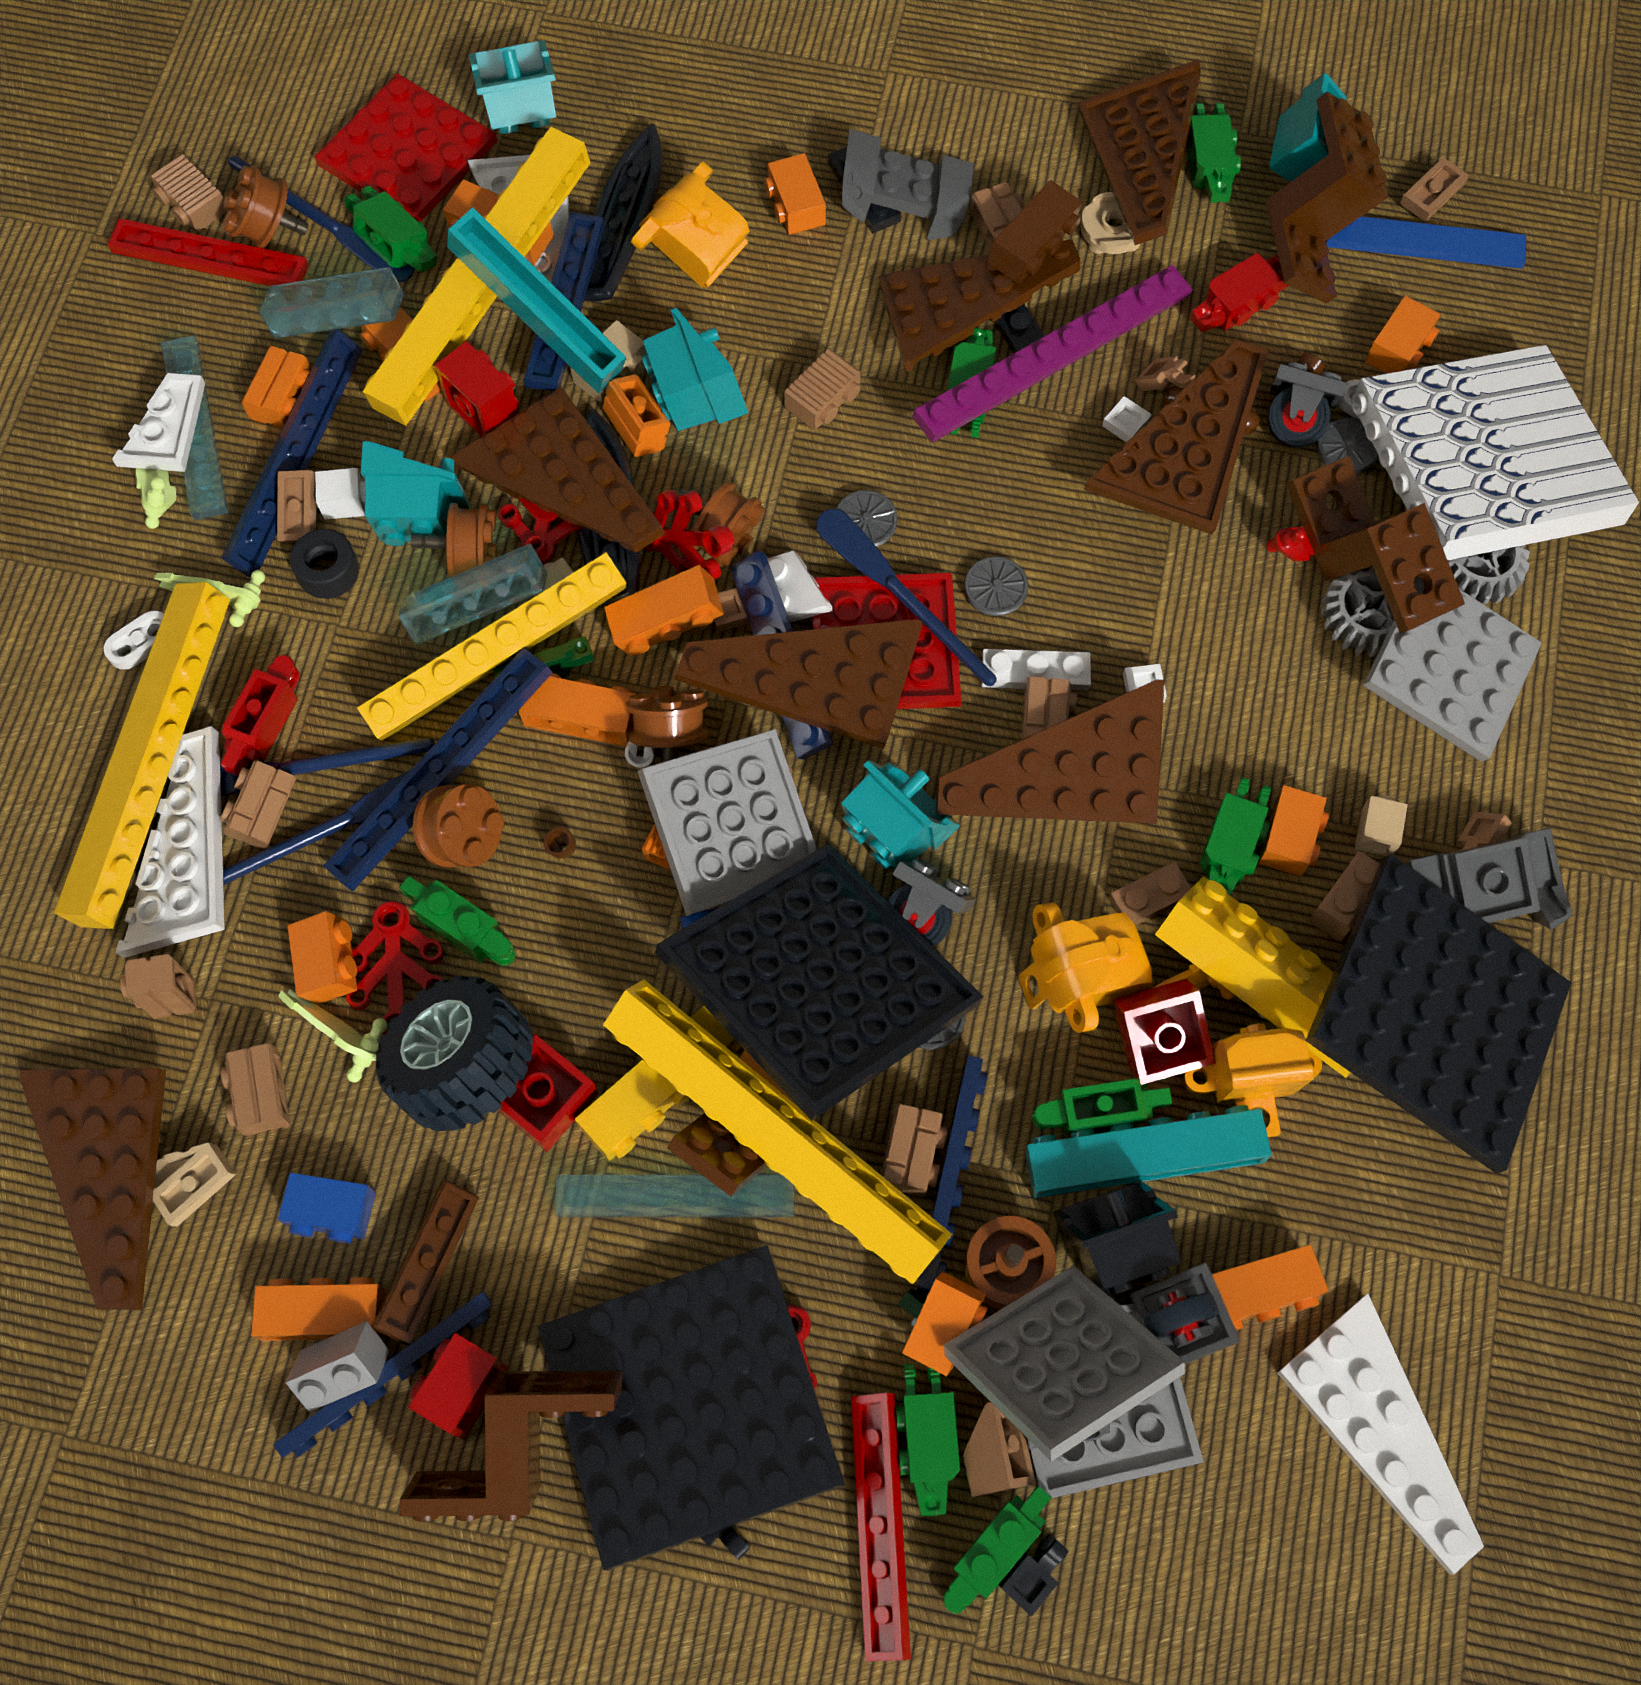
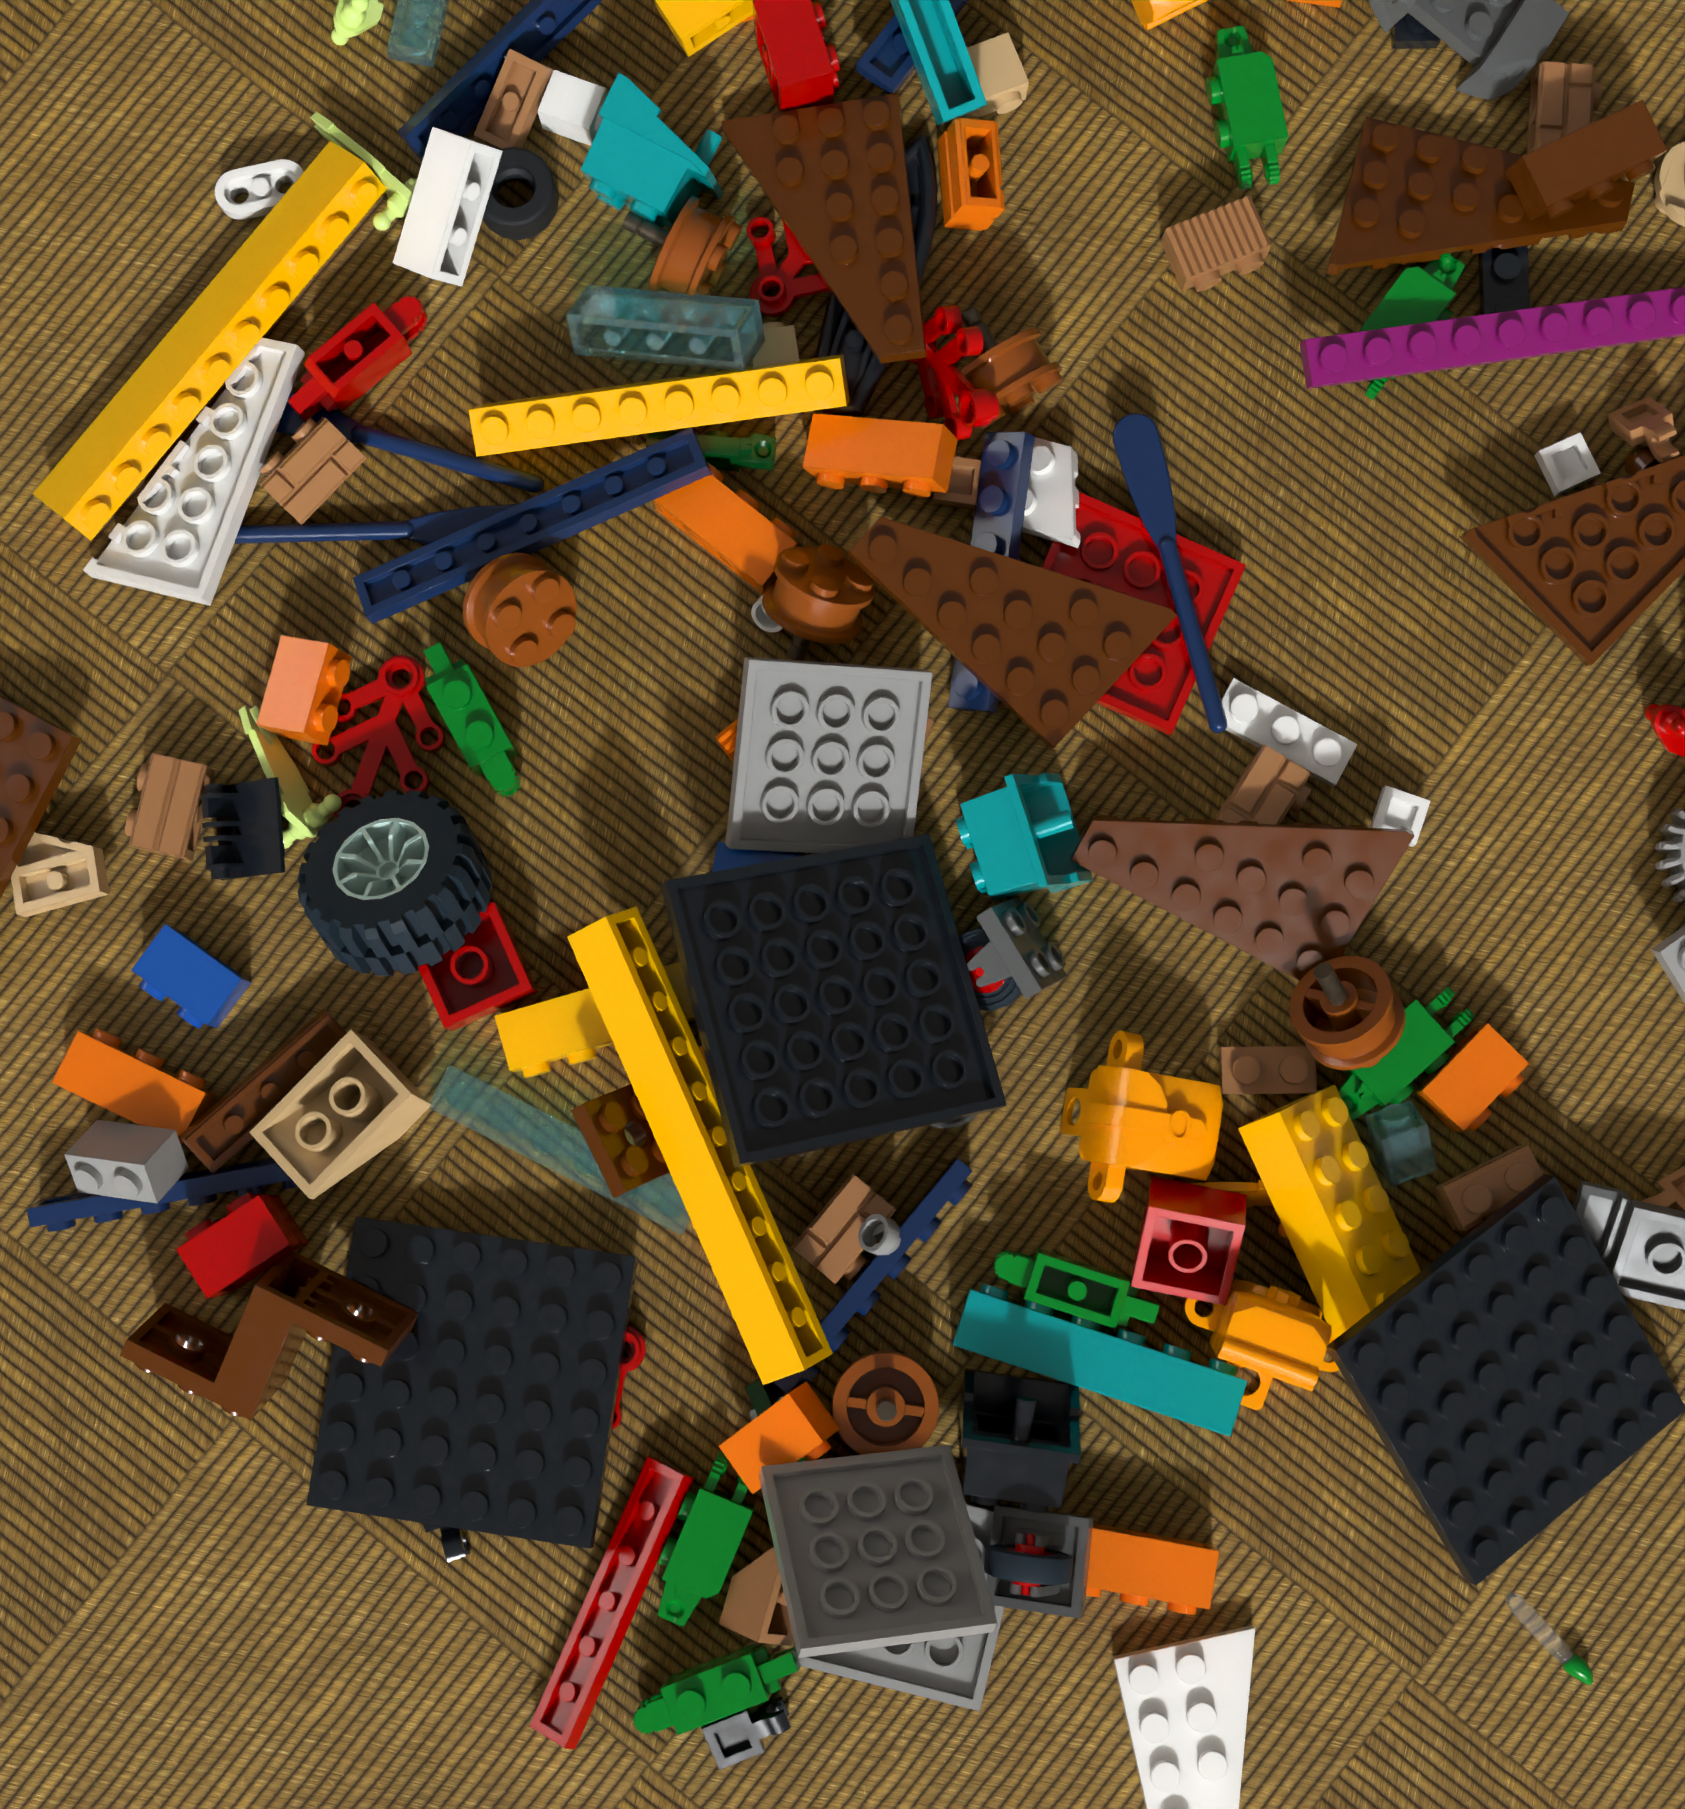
camera: 25 degrees right, 15 degrees up
(159, 986) = (112, 639): medium nougat brick -> none
(279, 587) = (447, 207): none -> white brick
(321, 1075) = (246, 829): none -> black hinge
(490, 1248) = (340, 1115): none -> tan slope
(553, 847) = (621, 681): reddish brown hinge -> none
(692, 376) = (1055, 157): teal piece -> none
(798, 301) = (1247, 106): none -> green hinge
(872, 513) = (1189, 438): dark grey wheel -> none
(941, 1131) = (882, 1228): none -> light grey hinge
(996, 586) = (1292, 603): dark grey wheel -> none
(1185, 821) = (1347, 1013): none -> dark orange wheel
(1271, 894) = (1401, 1142): none -> clear light blue brick
(1381, 825) = (1577, 1122): tan brick -> none
(1603, 1202) = (1572, 1663): none -> clear piece

